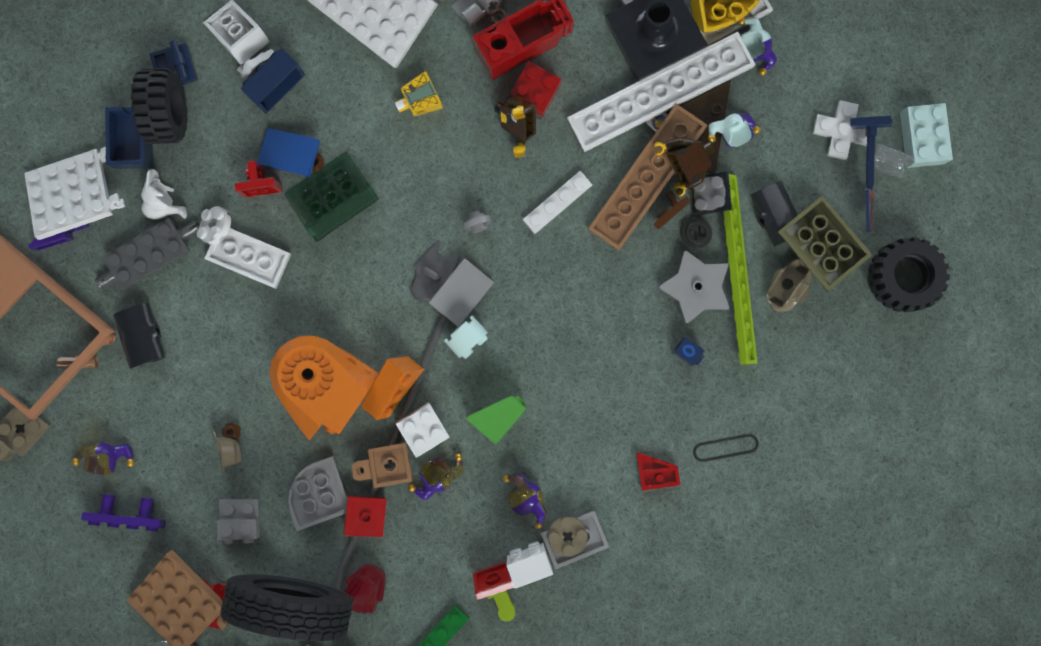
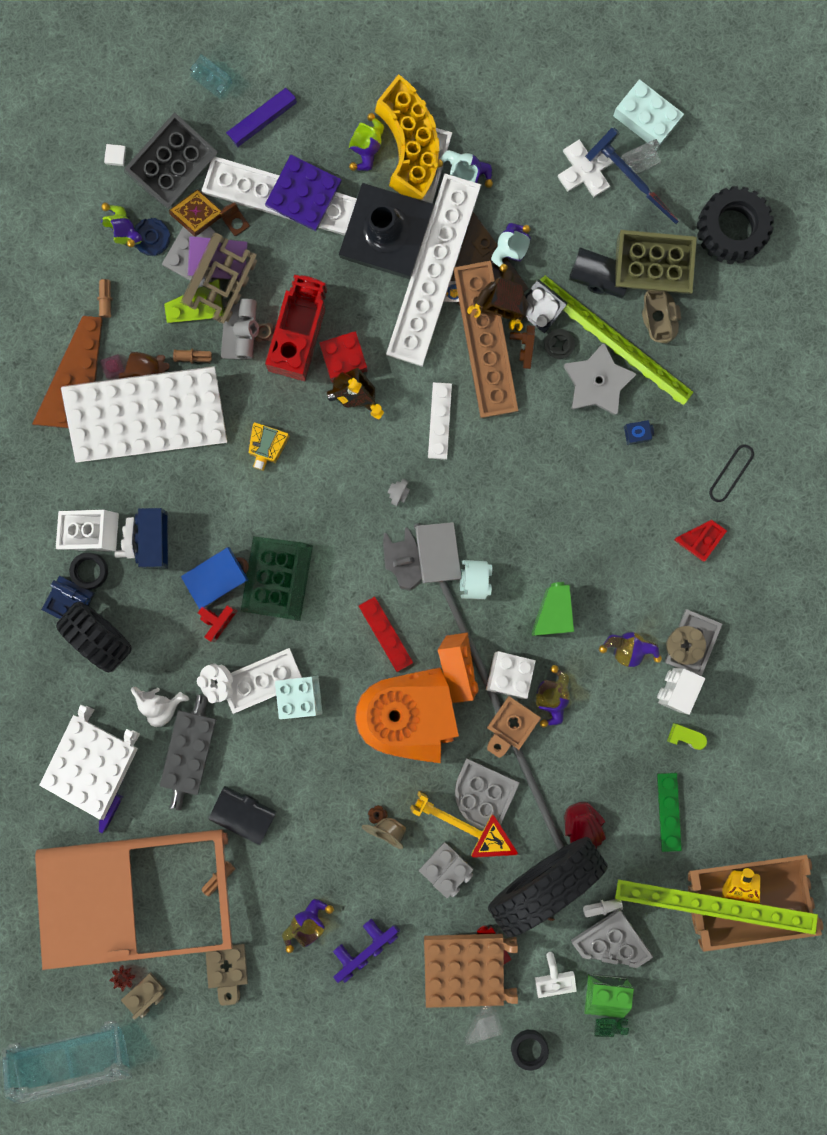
camera: 45 degrees left, 0 degrees up
(123, 143) = (90, 685): dark blue piece -> none
(212, 74) = (74, 570): none -> black tyre
(261, 294) = (298, 697): none -> light aqua bracket
(291, 531) = (491, 840): none -> yellow piece
(364, 516) = (532, 776): red plate -> none
(367, 312) = (385, 634): none -> red plate
(492, 581) = (666, 727): red plate -> none

